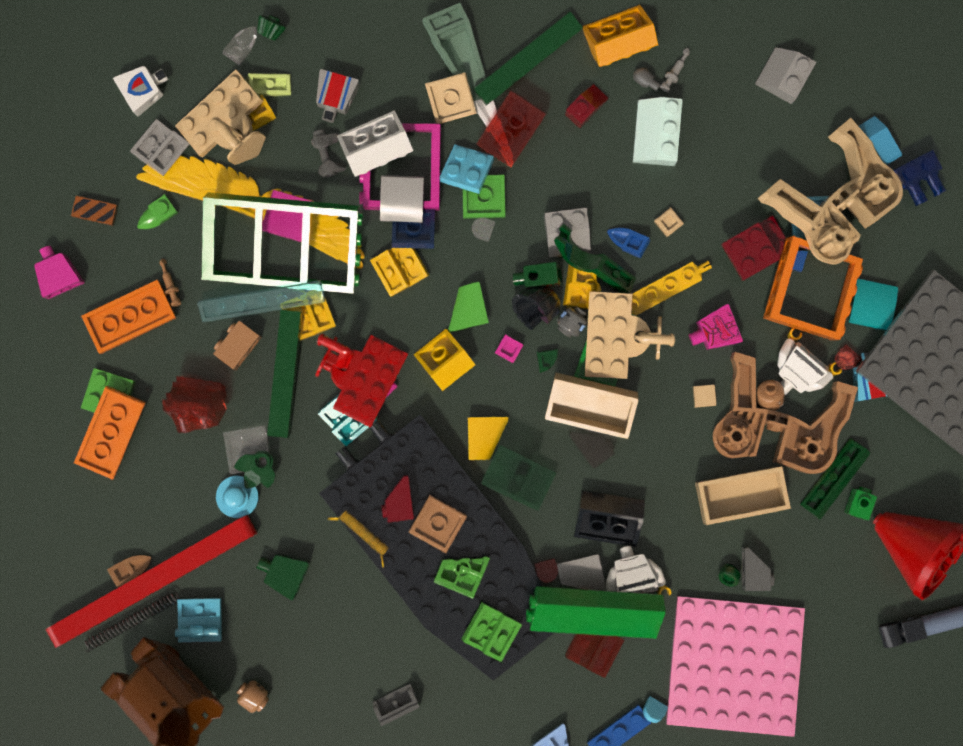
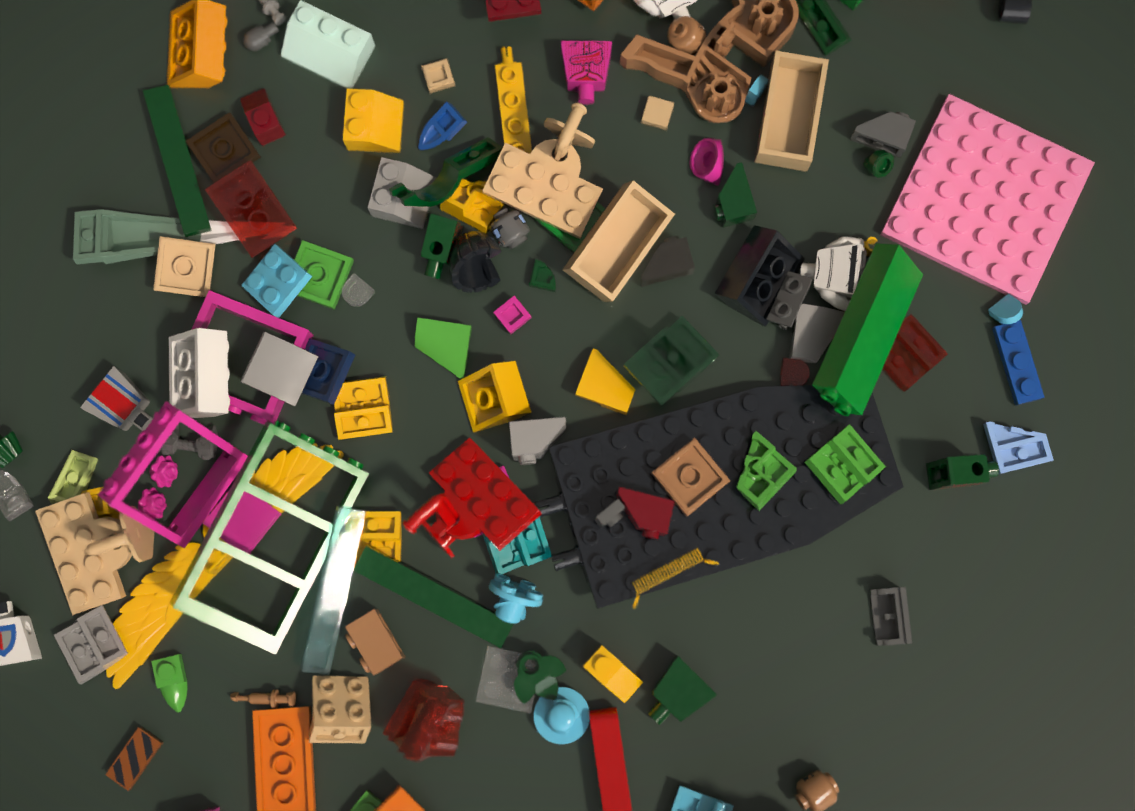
camera: 70 degrees left, 5 degrees down
(181, 340) = (340, 709): none -> tan bracket
(273, 148) = (152, 503): none -> dark pink plant
(279, 521) = (612, 673): none -> yellow slope
(291, 182) = (202, 499): none -> dark pink window
(299, 146) = (164, 471): none -> dark pink plant
(305, 431) = (514, 598): none -> medium azure plate
(387, 477) = (610, 515): none -> dark grey plate
(422, 400) = (533, 438): none -> light grey slope
(519, 718) = (960, 471): none -> dark green torso
(550, 88) = (222, 147): none -> dark brown plate
(599, 546) = (789, 300): none -> dark grey hinge
(613, 189) = (372, 121): none -> yellow slope
(659, 478) = (735, 199): none -> dark green slope
(682, 447) = (708, 160): none -> dark pink piece
(750, 463) = (756, 90): none -> medium azure tile

